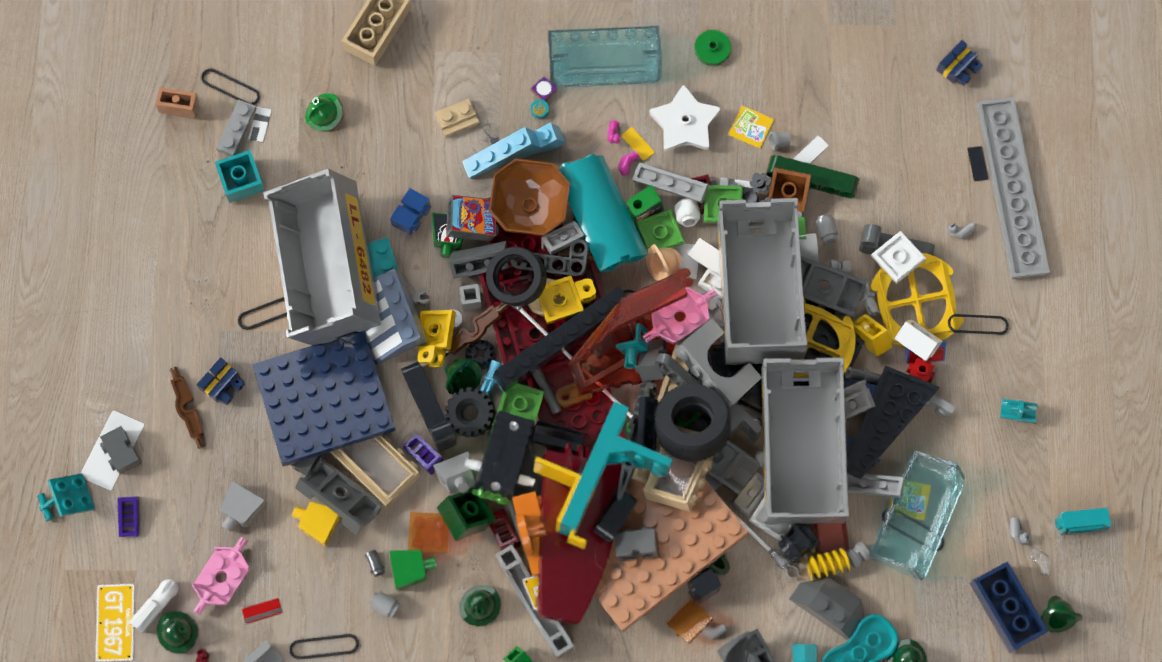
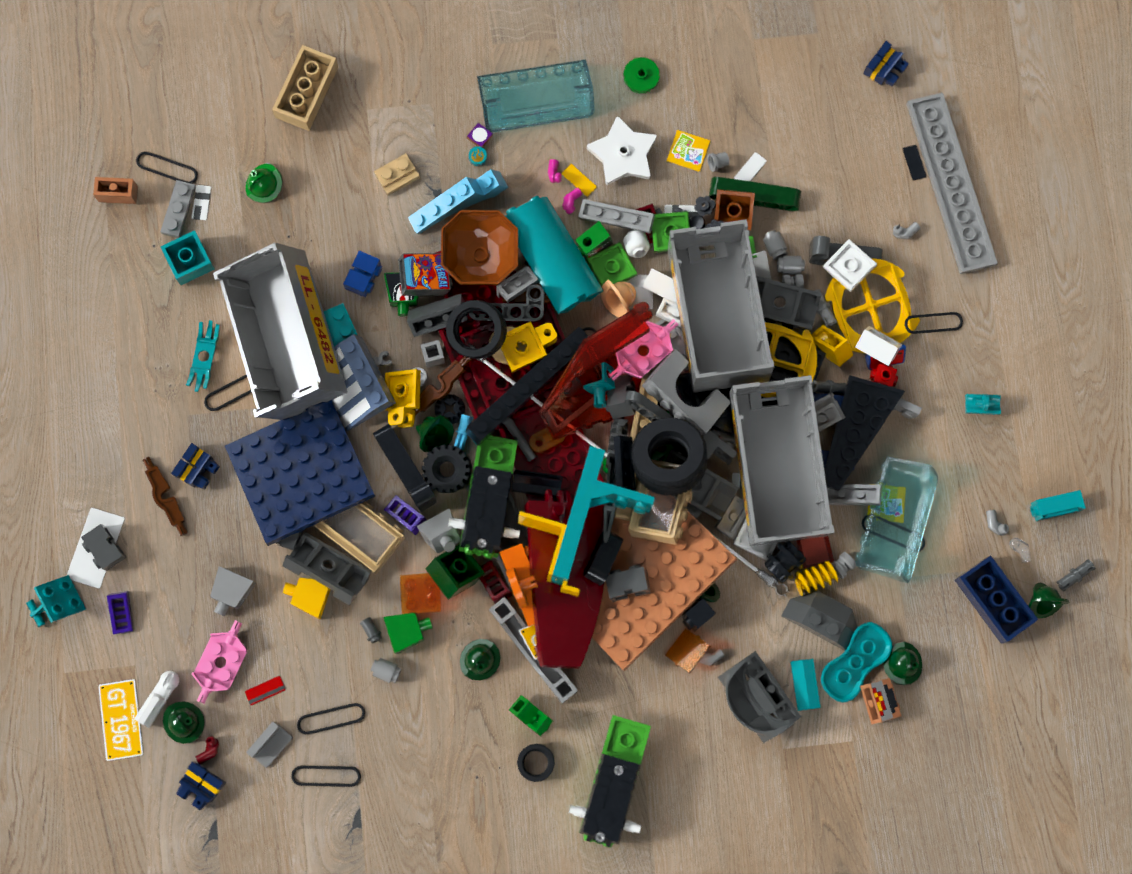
camera: 10 degrees left, 5 degrees up
(244, 263) = (203, 344): none -> teal piece
(839, 250) = (790, 265): none -> light grey brick
(1094, 593) = (1075, 575): none -> dark grey pin

